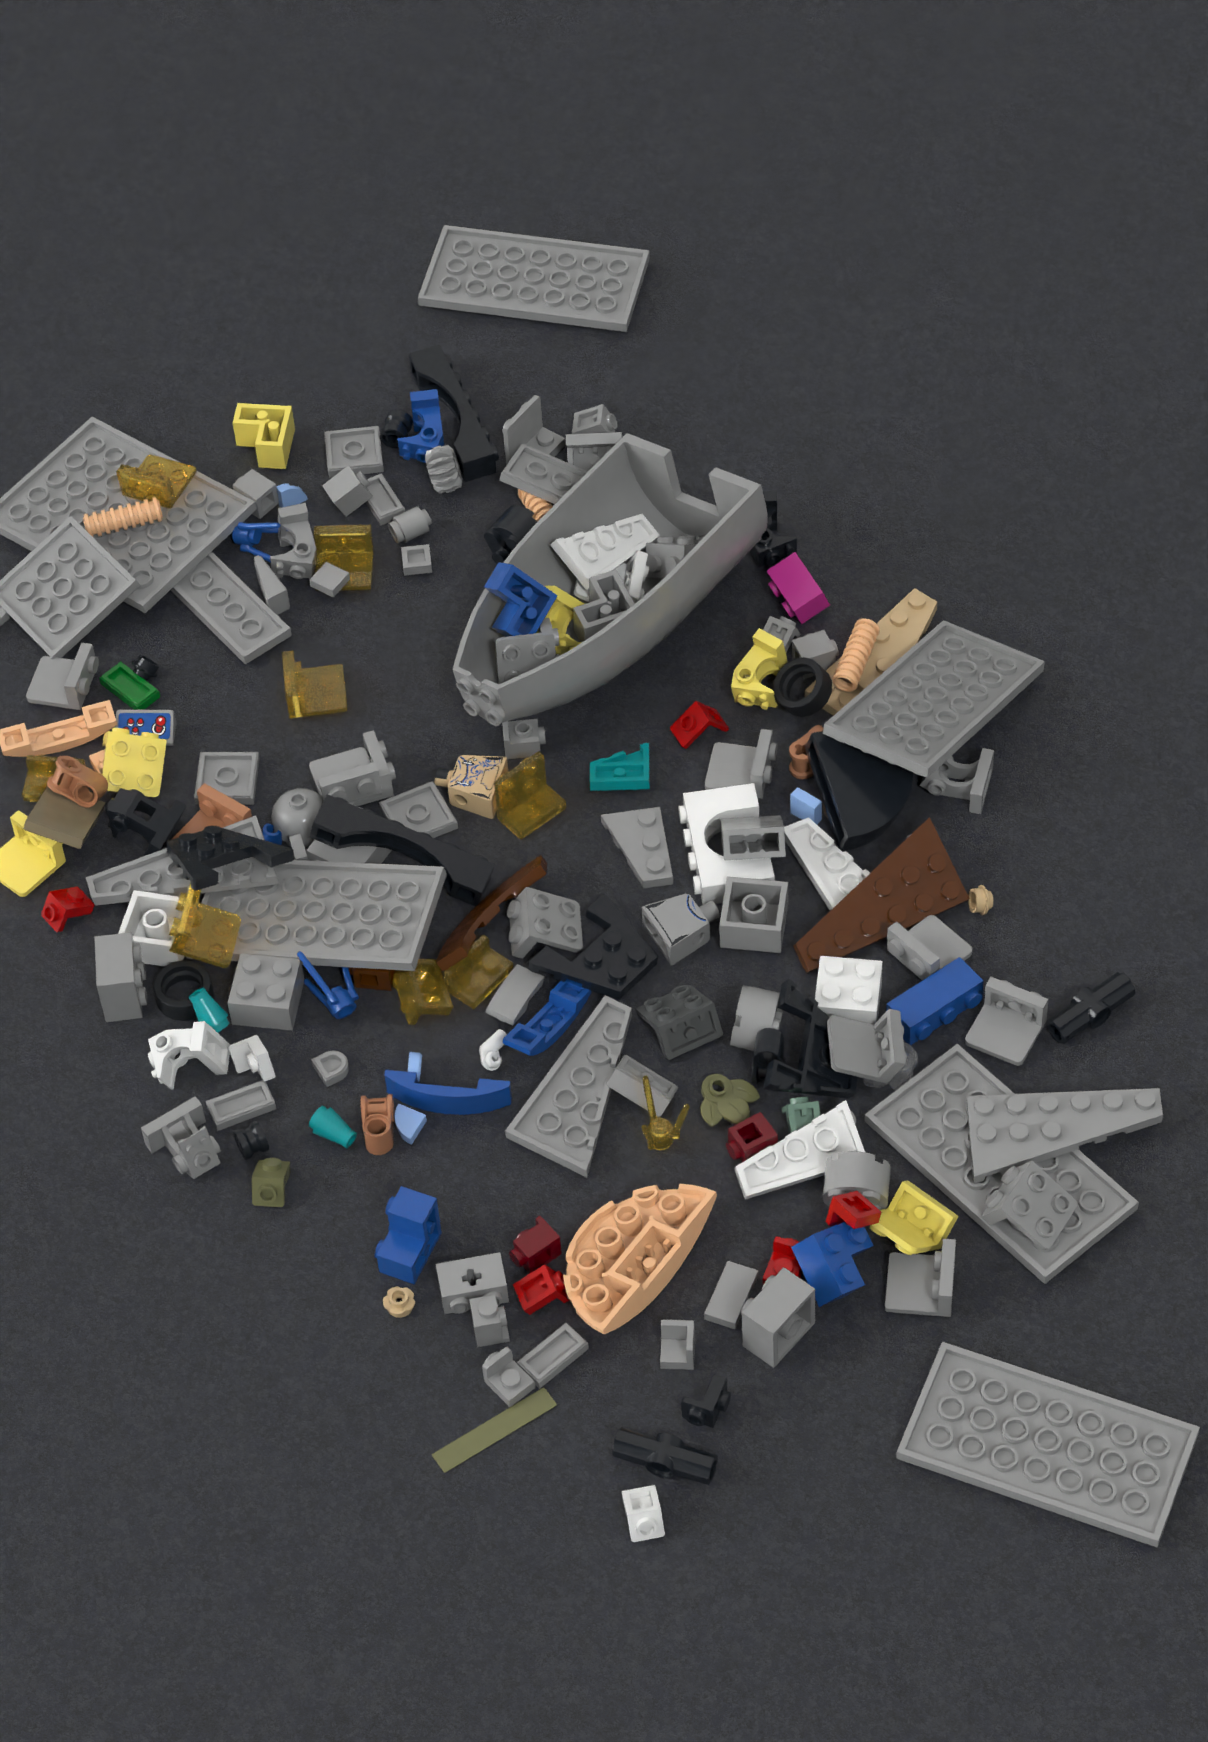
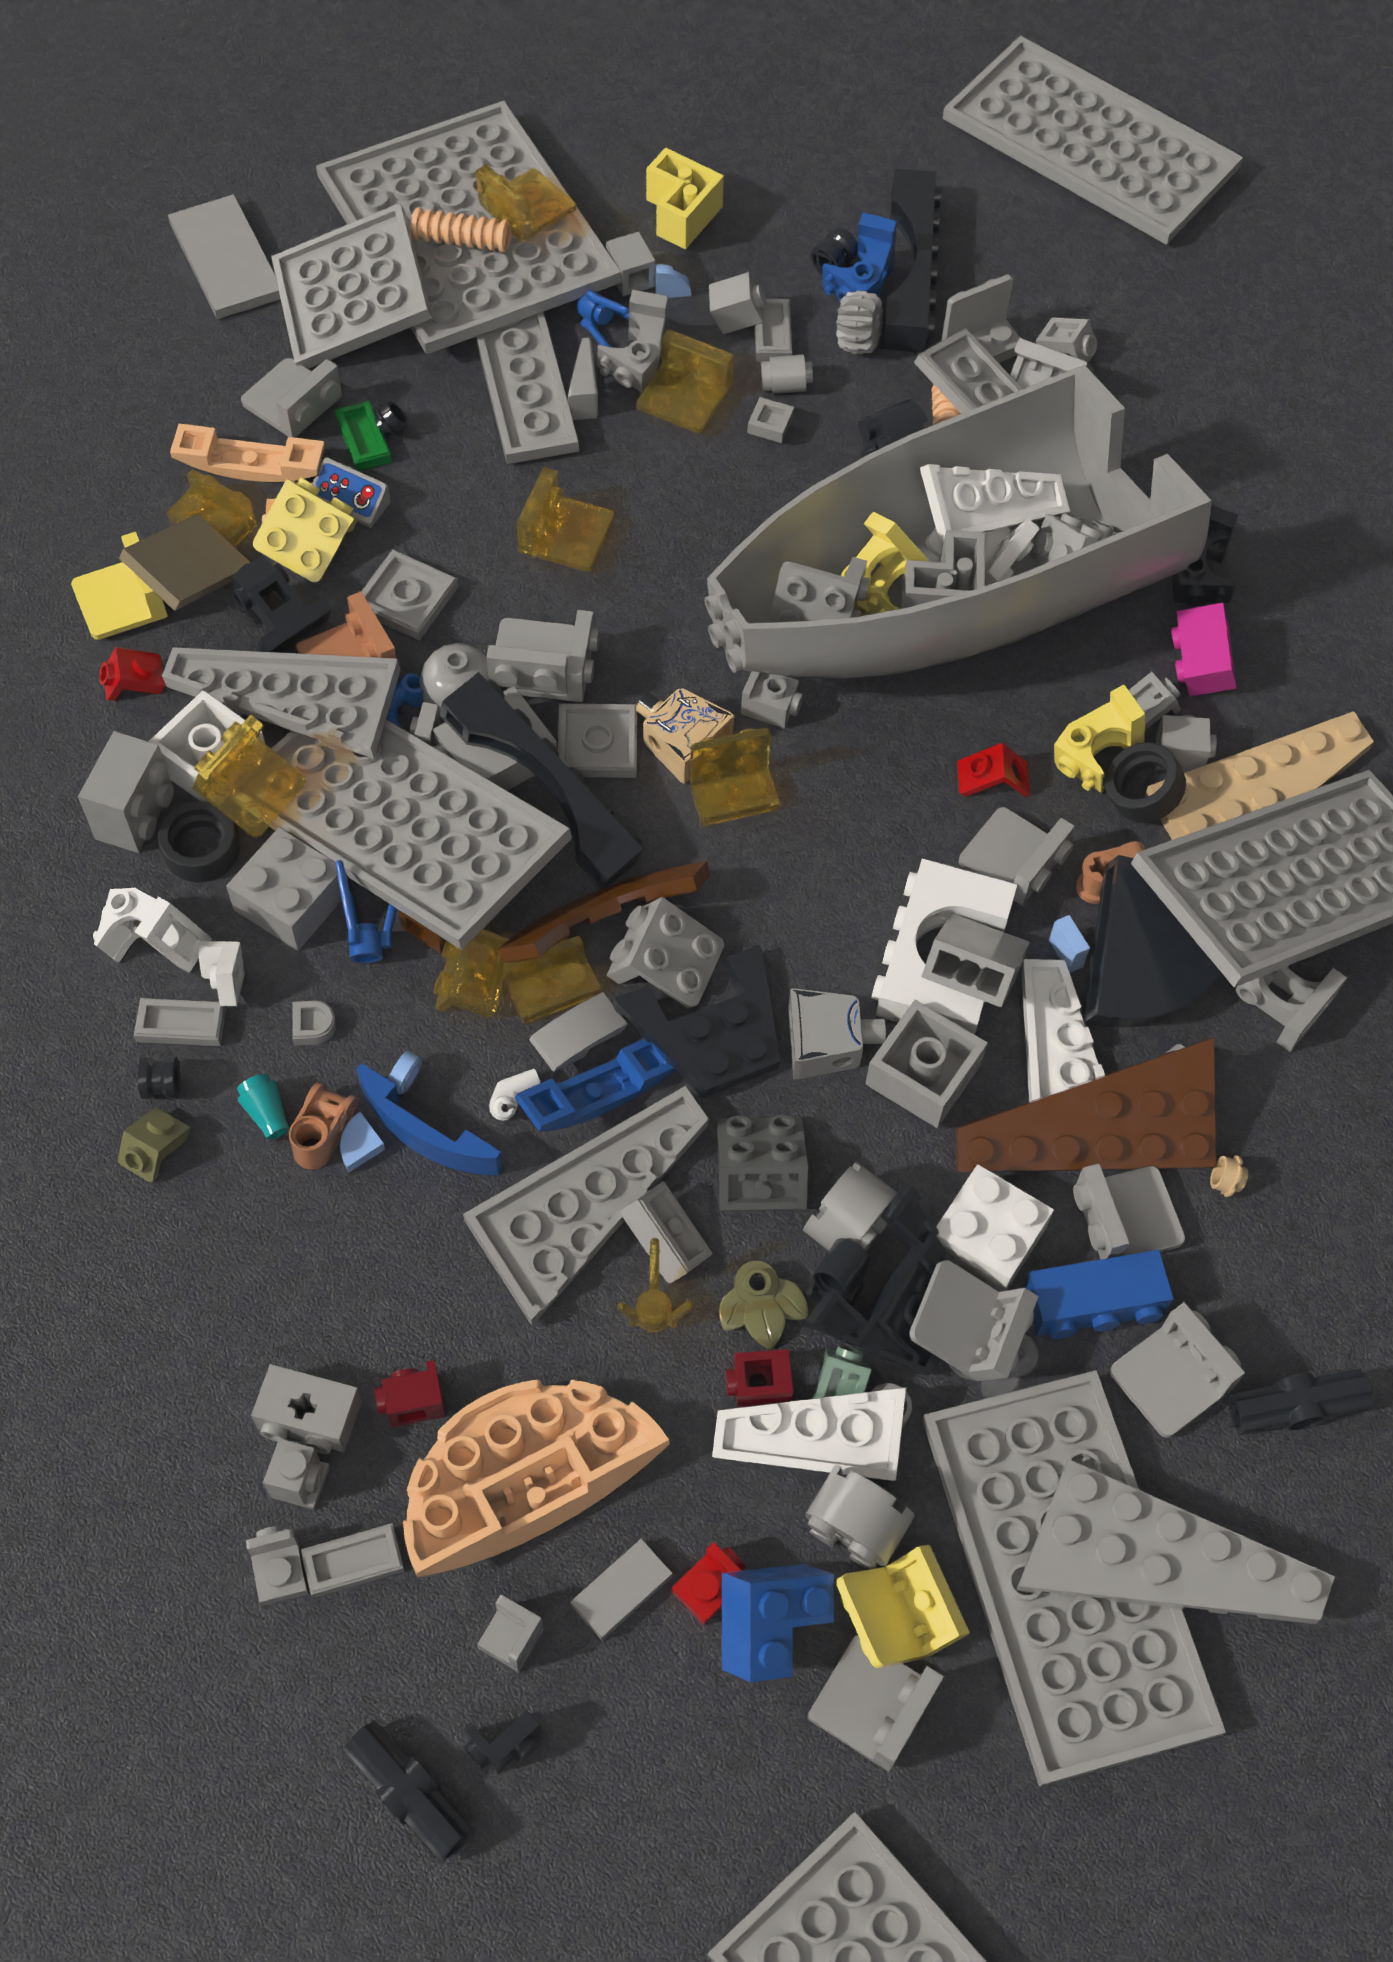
camera: 20 degrees right, 10 degrees up
(75, 782) = (224, 529): nougat piece -> none
(177, 1130) = (85, 1055): light grey tile -> none
(209, 1010) = (205, 885): teal cone -> none
(216, 847) = (316, 681): black wing -> none
(329, 579) = (656, 401): light grey tile -> none
(354, 447) = (774, 259): light grey tile -> none
(401, 1308) = (209, 1397): tan plate -> none
(411, 1235) = (265, 1309): blue brick -> none
(494, 1430) = (224, 1629): olive sticker -> none
(524, 597) = (846, 529): blue brick -> none
(540, 1289) = (384, 1459): red bracket -> none
(622, 771) = (868, 793): teal wing -> none
(643, 843) = (843, 900): light grey wing -> none
(643, 1513) = (334, 1861): white bracket -> none
(778, 1316) = (653, 1665): light grey brick -> none
(853, 1210) = (824, 1568): red bracket -> none
(856, 655) = (1232, 770): light nougat piece -> none
(1031, 1203) = (1073, 1669): light grey bracket -> none

